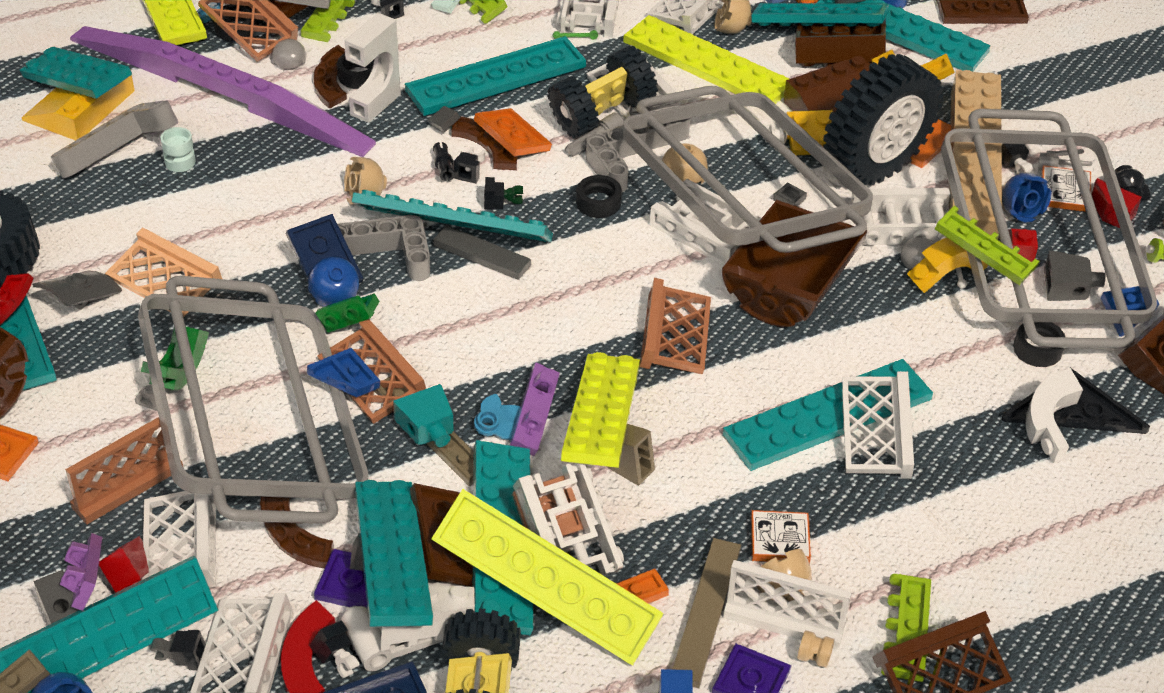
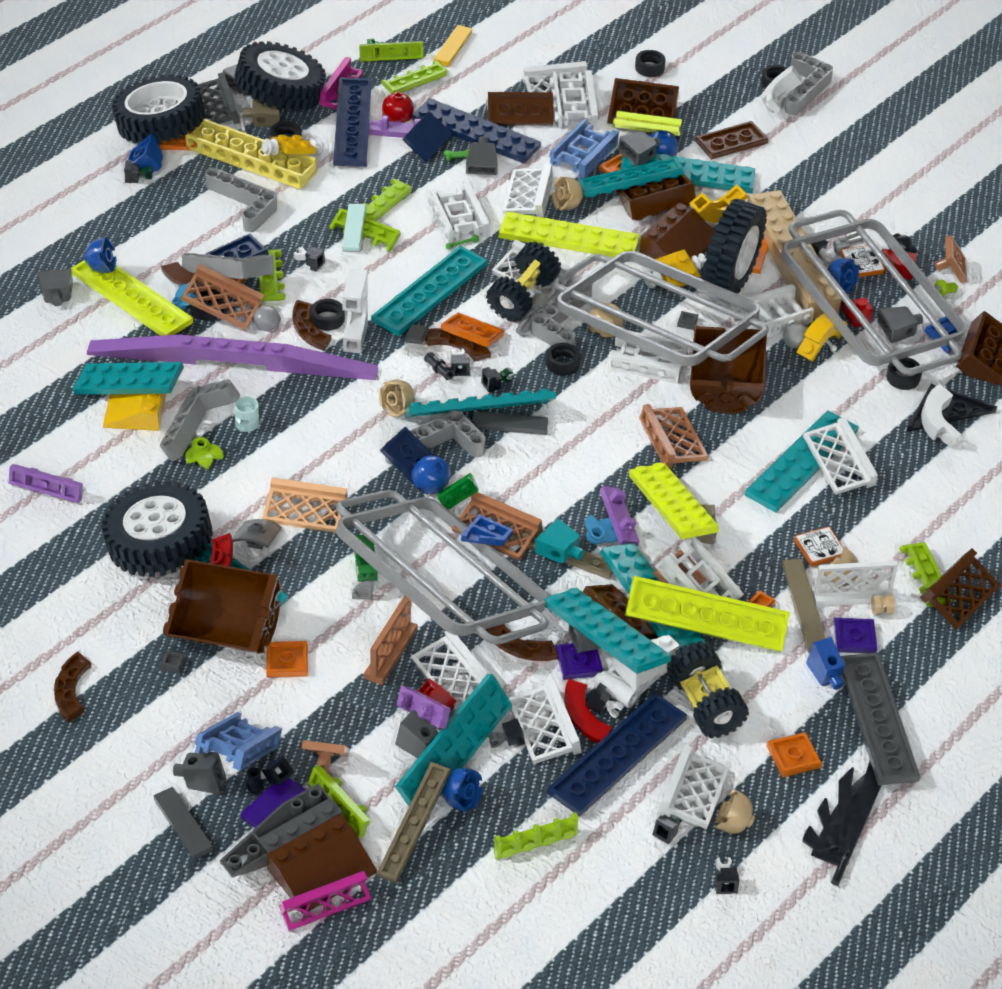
camera: 25 degrees left, 0 degrees up
(100, 180) = (203, 454): none -> lime plate
(985, 246) = (849, 318): lime hinge -> none

